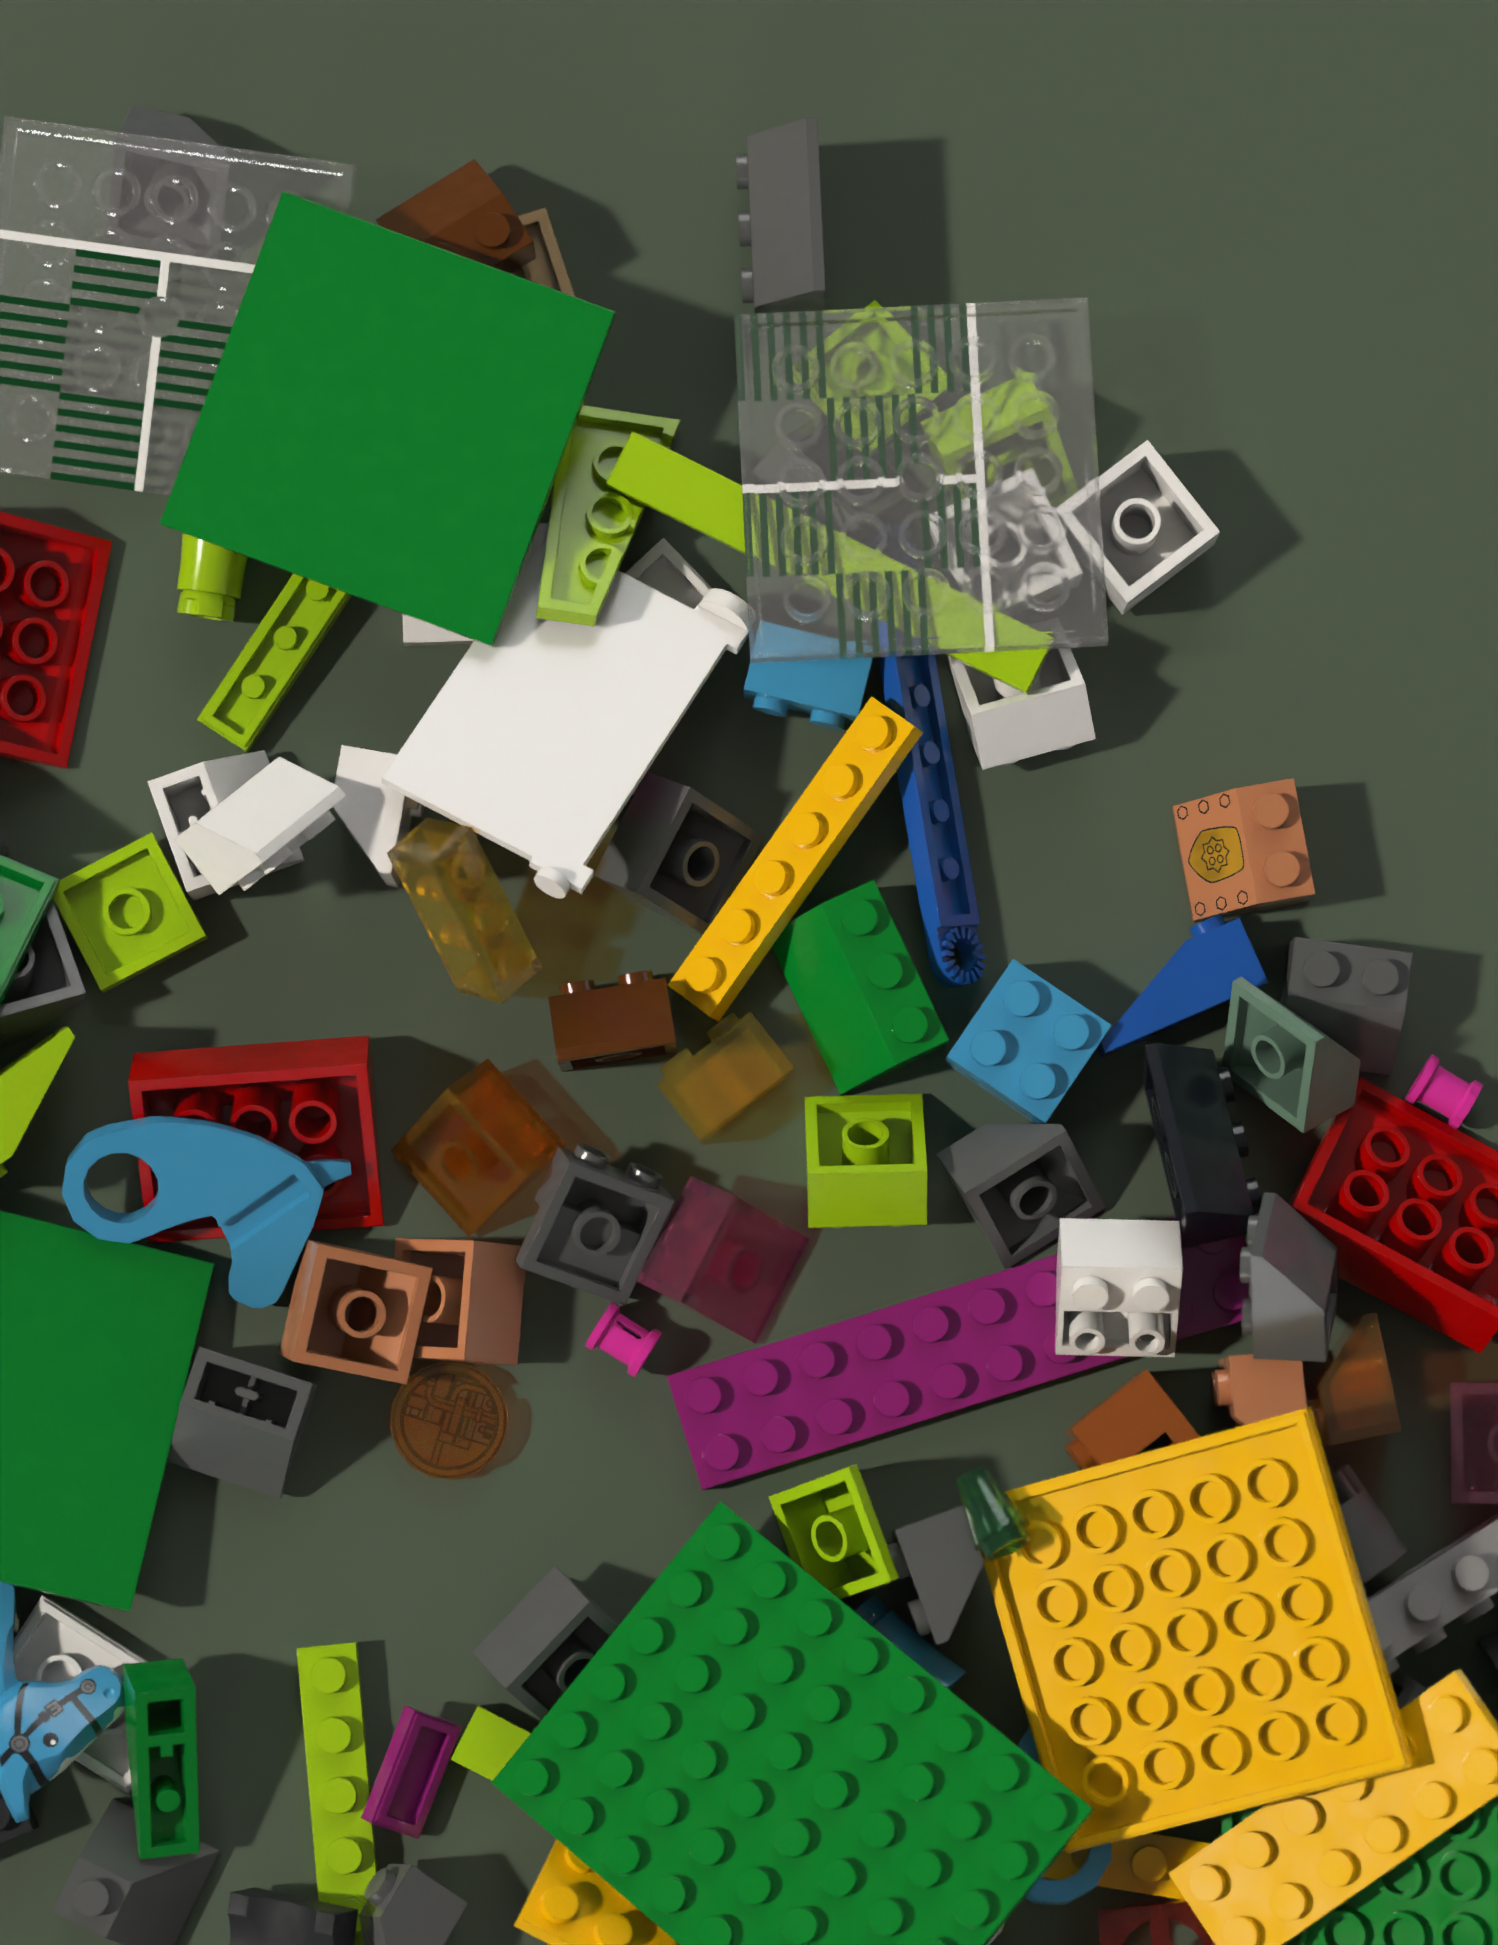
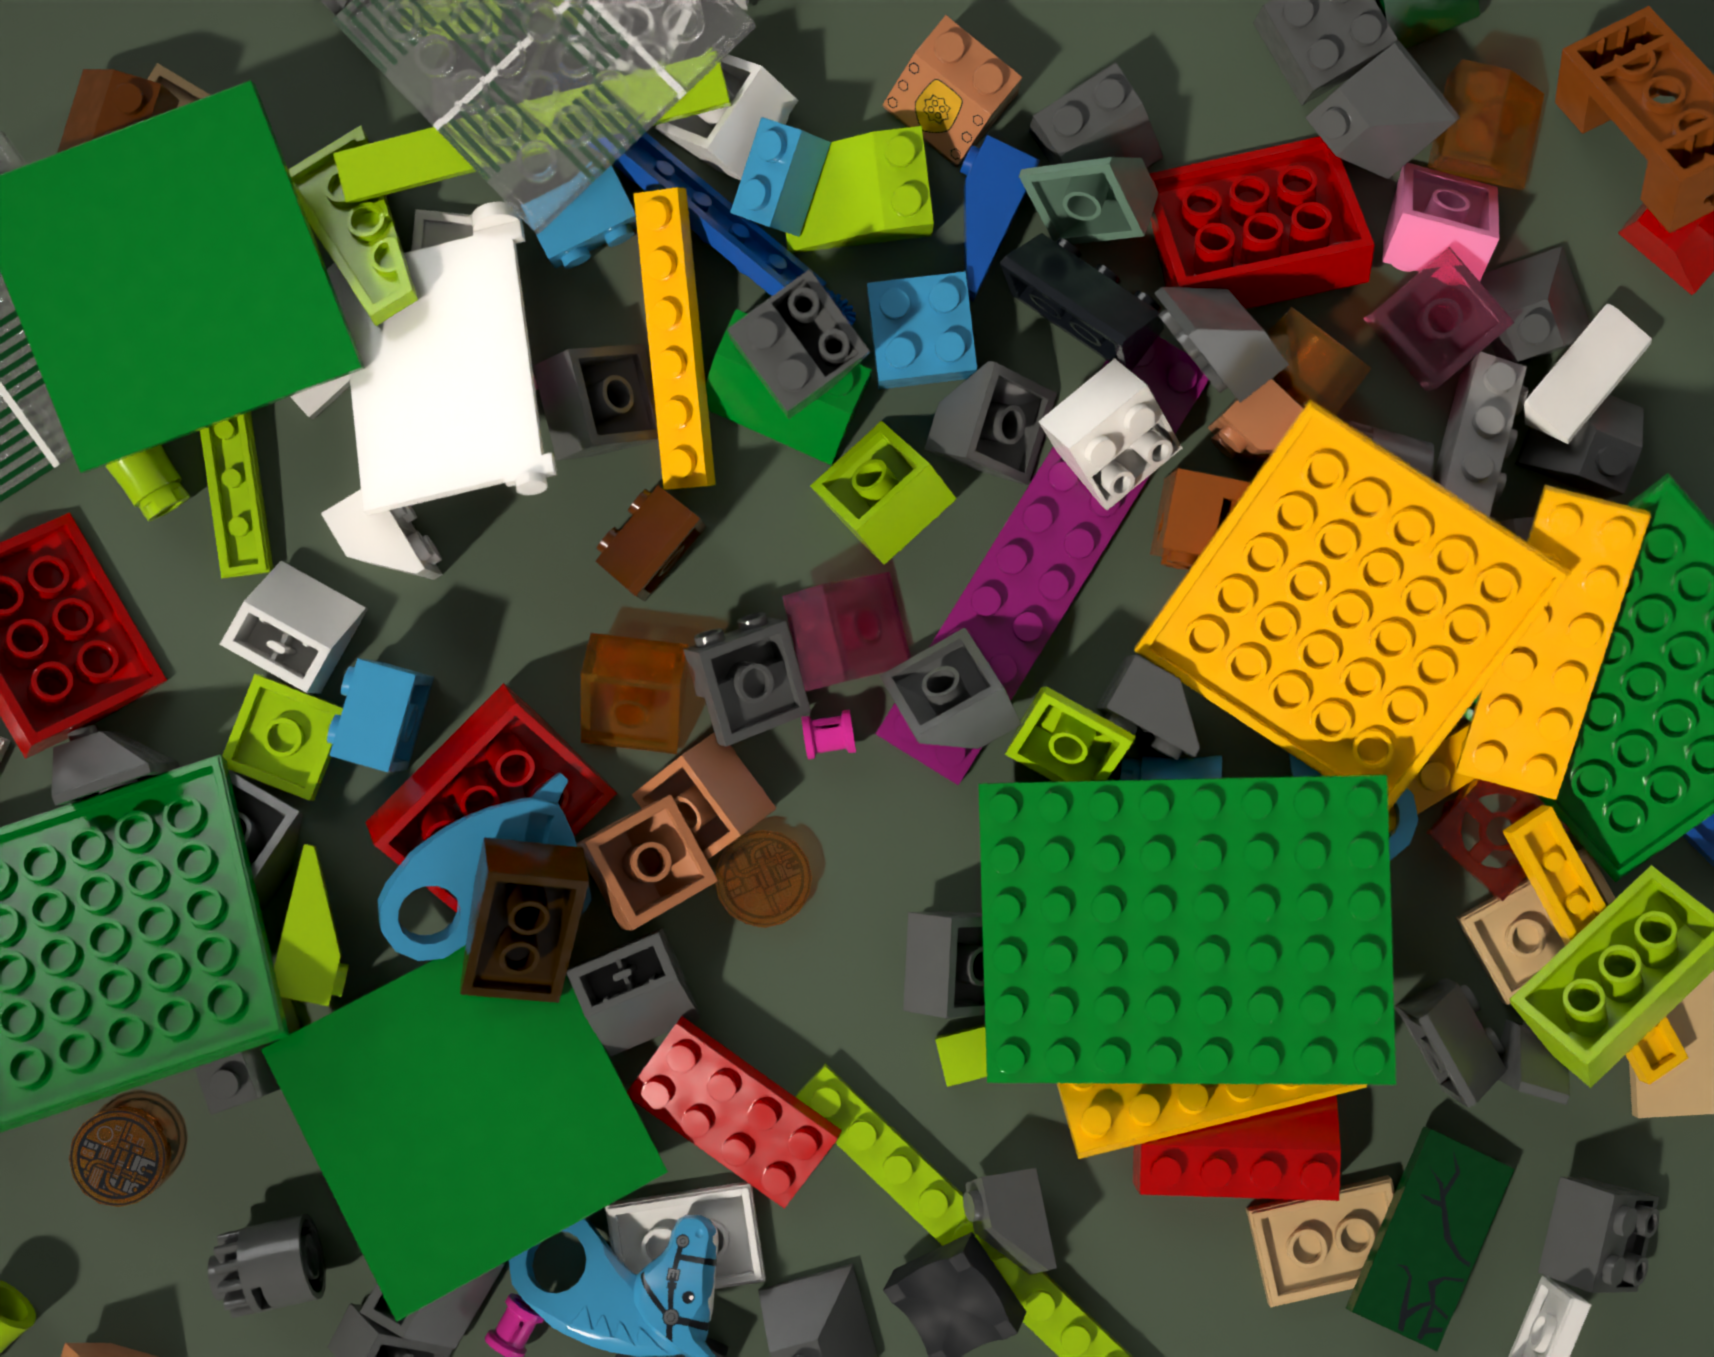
camera: 40 degrees left, 5 degrees up
(162, 1756) = (767, 1243): green slope -> none
(201, 1266) = (523, 919): none -> dark brown slope
(233, 968) = (379, 715): none -> dark azure brick
(235, 1610) = (733, 1112): none -> plate
(260, 825) = (312, 609): white slope -> none
(411, 1772) = (929, 1115): magenta tile -> none
(464, 909) = (492, 550): clear yellow brick -> none
(723, 1075) = (748, 515): clear yellow brick -> none
(765, 1399) = (951, 695): none -> dark grey slope
(899, 962) = (798, 343): none -> dark grey slope
(992, 1517) = (1160, 645): clear green cone -> none
(1017, 795) = (780, 176): none -> dark azure brick
(1077, 865) = (869, 193): none -> lime slope
(1444, 1091) = (1206, 137): dark pink bush -> none

